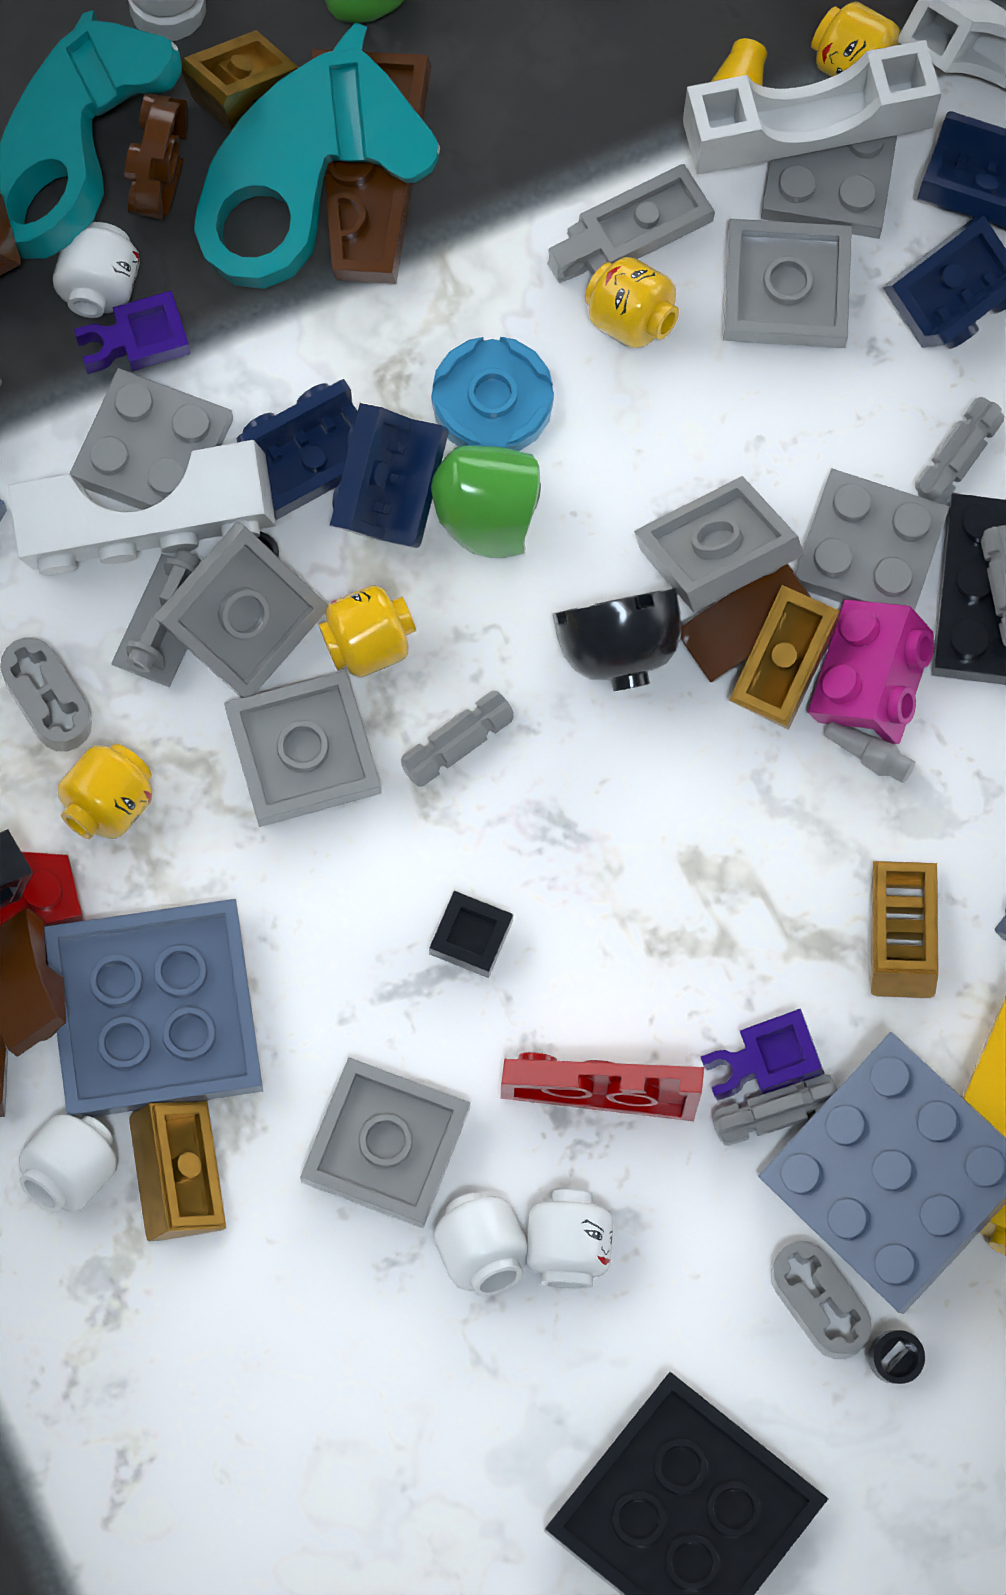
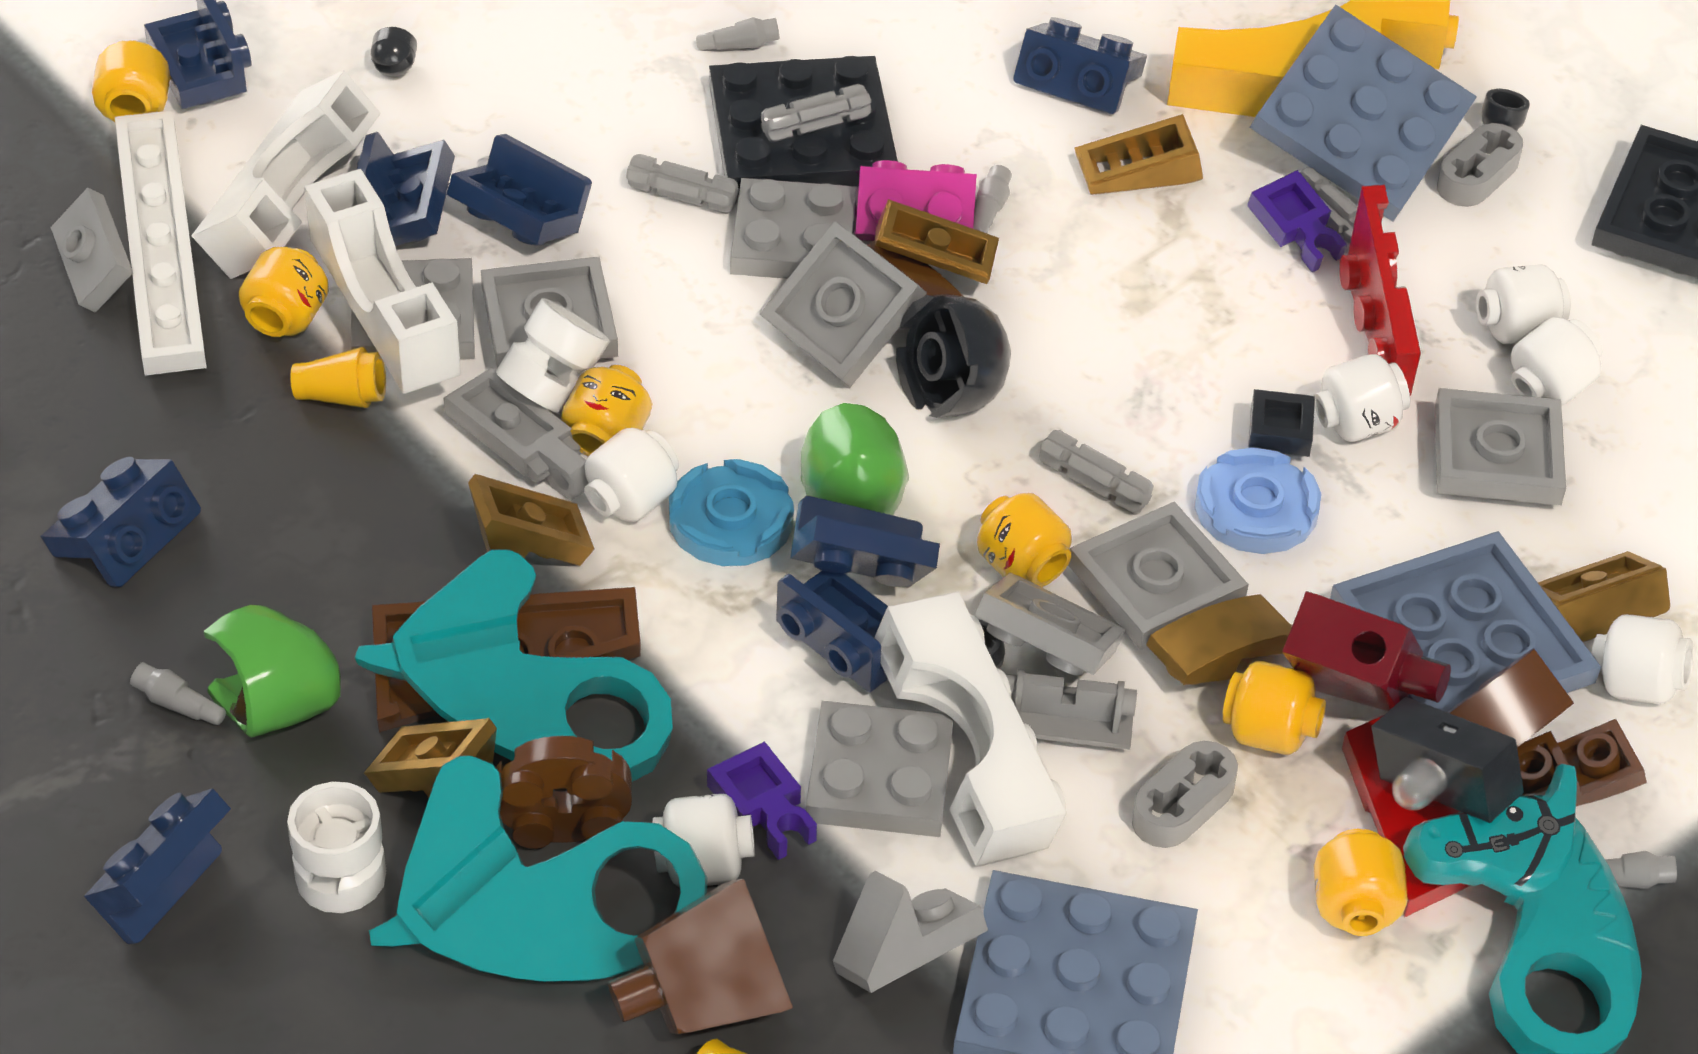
camera: 105 degrees left, 25 degrees down
(110, 863) = (1361, 655): none -> dark red torso
(204, 778) = (1216, 638): none -> pearl gold slope
(385, 884) = (1257, 501): none -> light blue tile
(476, 1020) = (1362, 397): none -> white head
(493, 198) = (529, 521): none -> pearl gold slope
(540, 303) = (631, 474): none -> white head
(696, 254) = (552, 355): none -> white wheel

